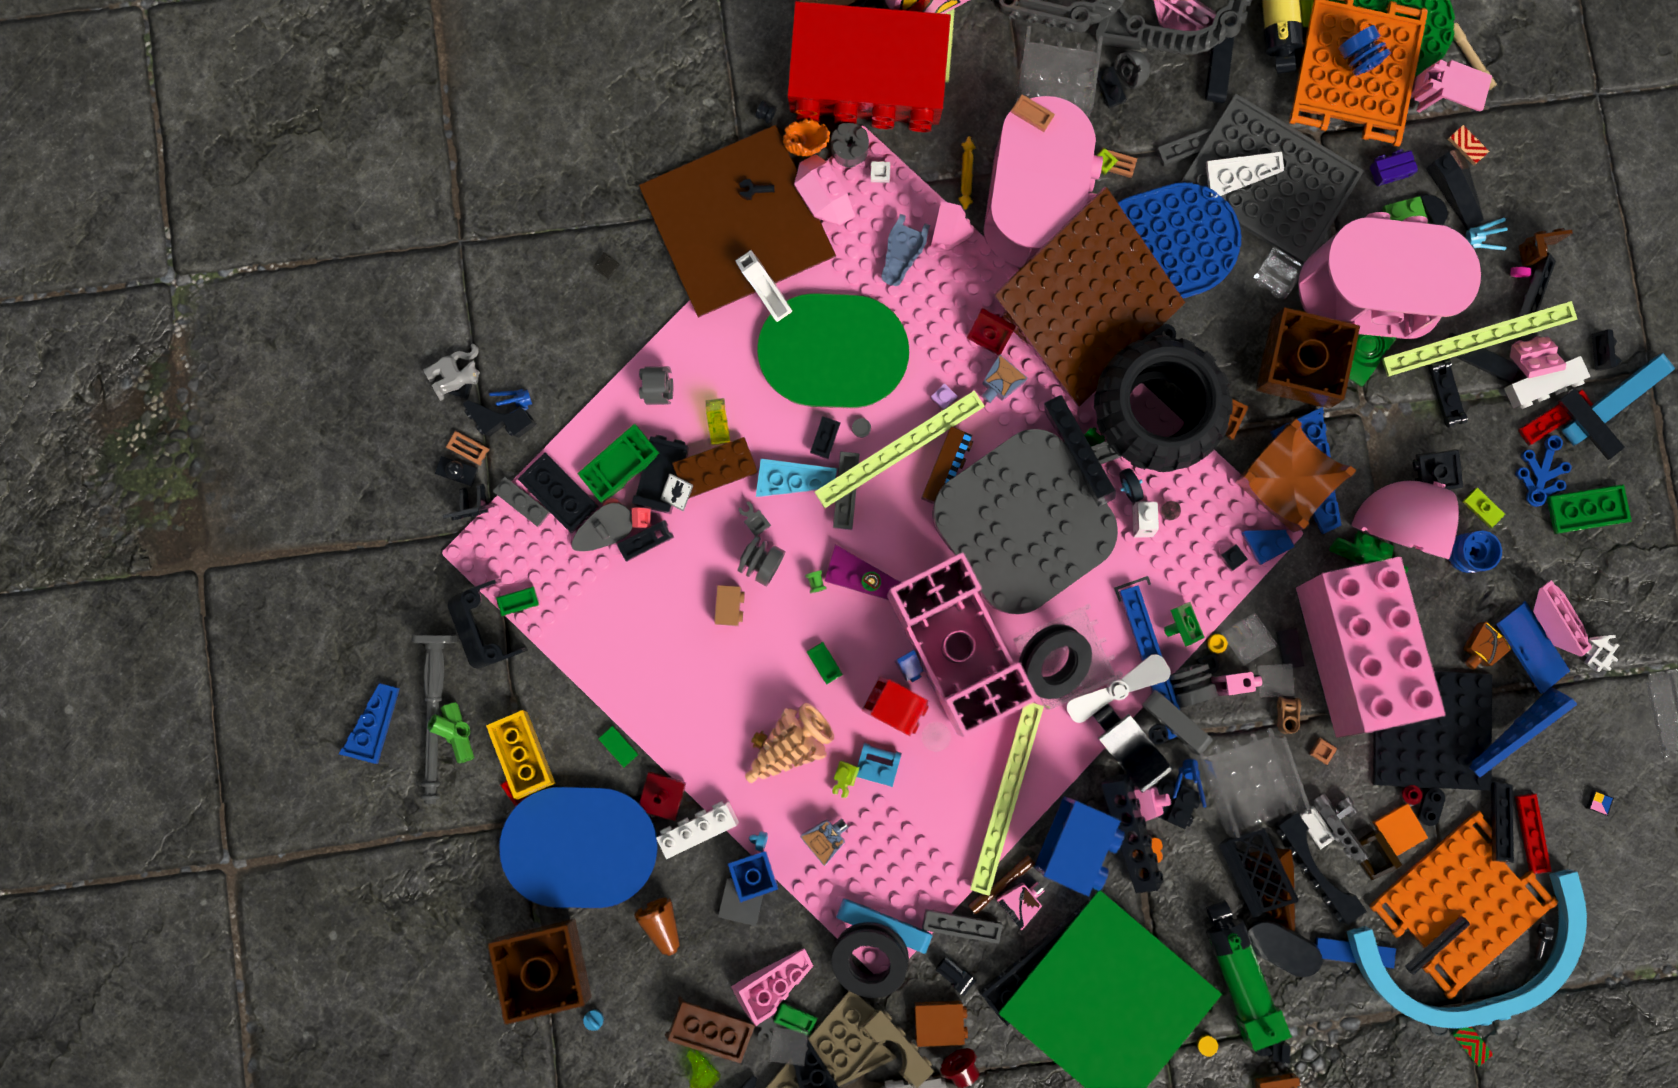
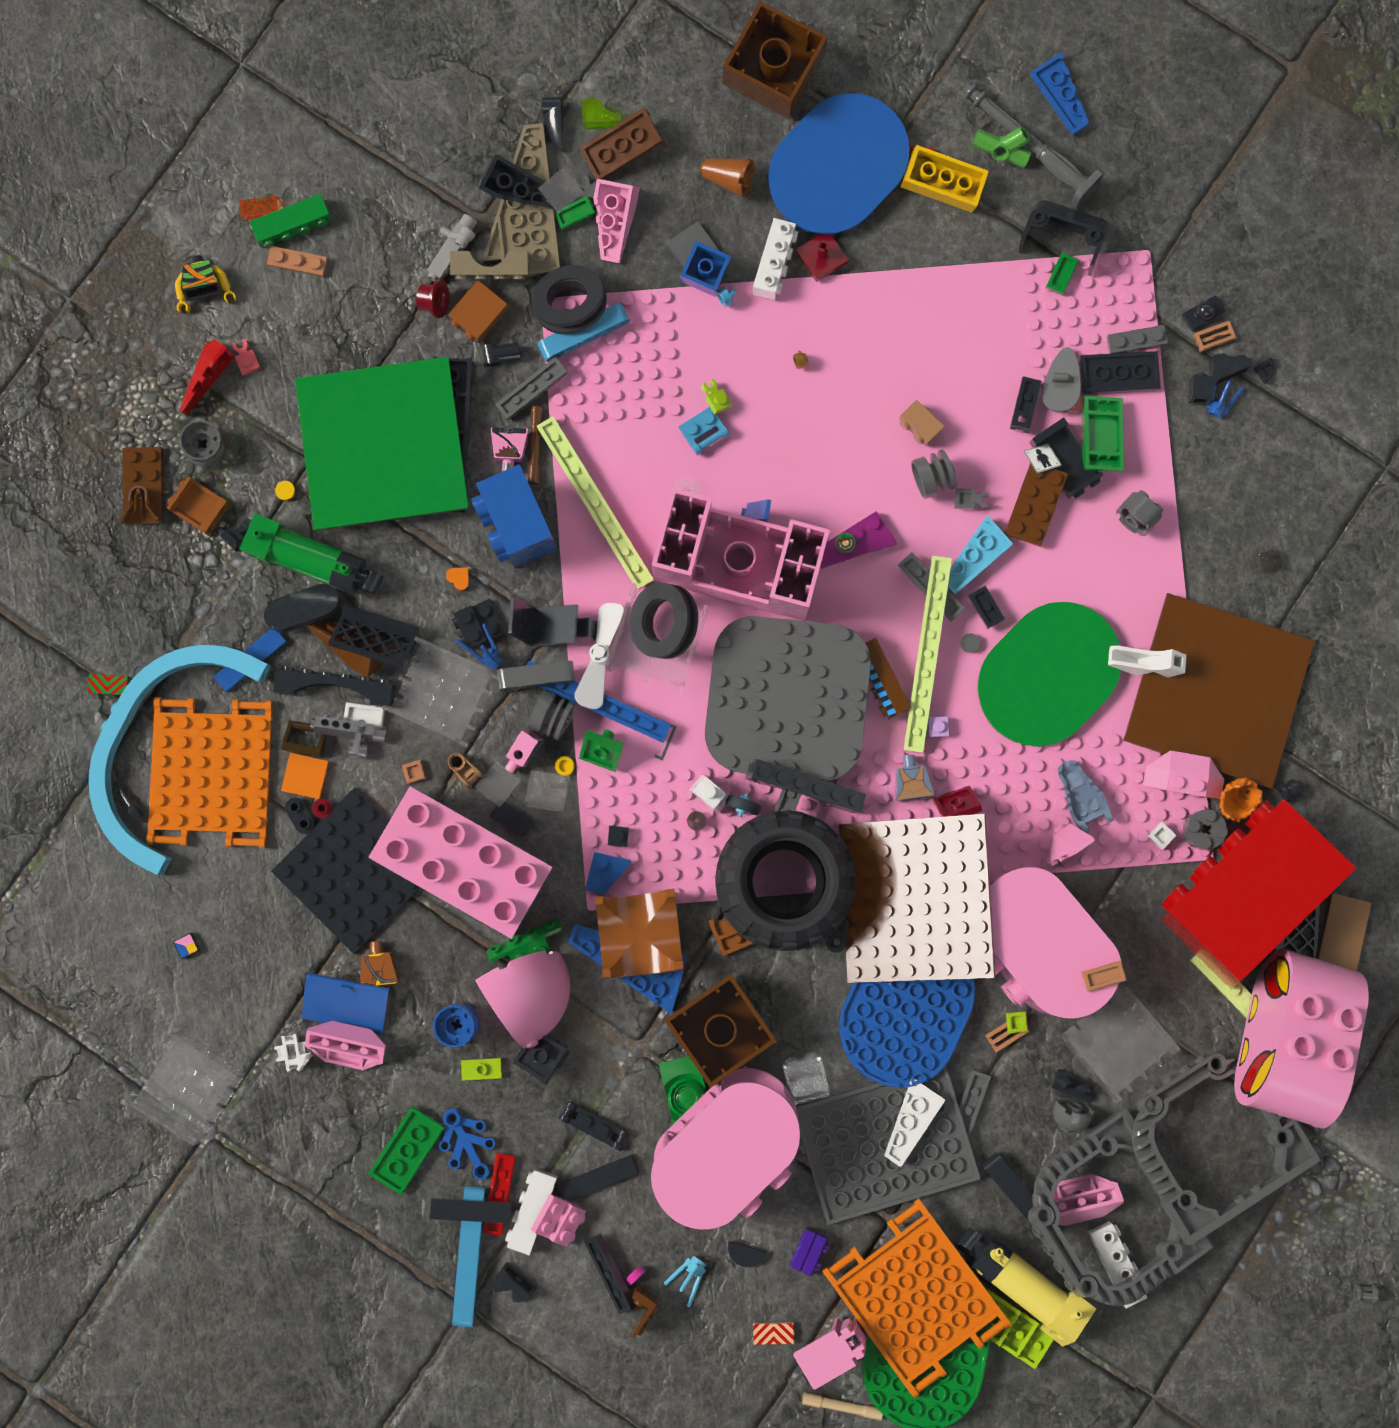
camera: 135 degrees right, 0 degrees up
(452, 377) = (1286, 370): light grey animal -> none
(482, 506) = (1167, 293): black plate -> none
(593, 1020) = (704, 72): dark azure tile -> none
(618, 746) = (887, 256): green tile -> none
(641, 518) = (1046, 415): coral plate -> none
(717, 421) = (1071, 536): clear neon green arch -> none
(754, 189) = (1233, 723): black bar -> none
(792, 743) = (776, 382): light nougat plant -> none
(815, 581) = (881, 503): bright green bush -> none
(824, 663) = (814, 458): green tile -> none
(825, 839) = (684, 343): torso -> none
(895, 706) = (735, 474): red brick -> none
(967, 171) = (1102, 906): yellow wheel -> none
(1093, 437) = (806, 807): green tile -> none
(1141, 879) = (486, 568): black brick -> none
(1151, 802) = (497, 598): bright pink torso -> none
(1156, 736) = (540, 649): black wheel -> none
(1364, 50) = (924, 1304): blue wheel -> none
(1405, 209) = (760, 1234): bright green plate -> none
(1437, 945) = (201, 721): black axle -> none
(1455, 182) = (750, 1293): black wedge -> none
(1479, 339) = (613, 1186): yellowish green plate -> none
(1502, 822) = (241, 855): black tile -> none
(1533, 833) = (211, 874): red tile -> none
(1535, 719) = (294, 937): blue wing -> none

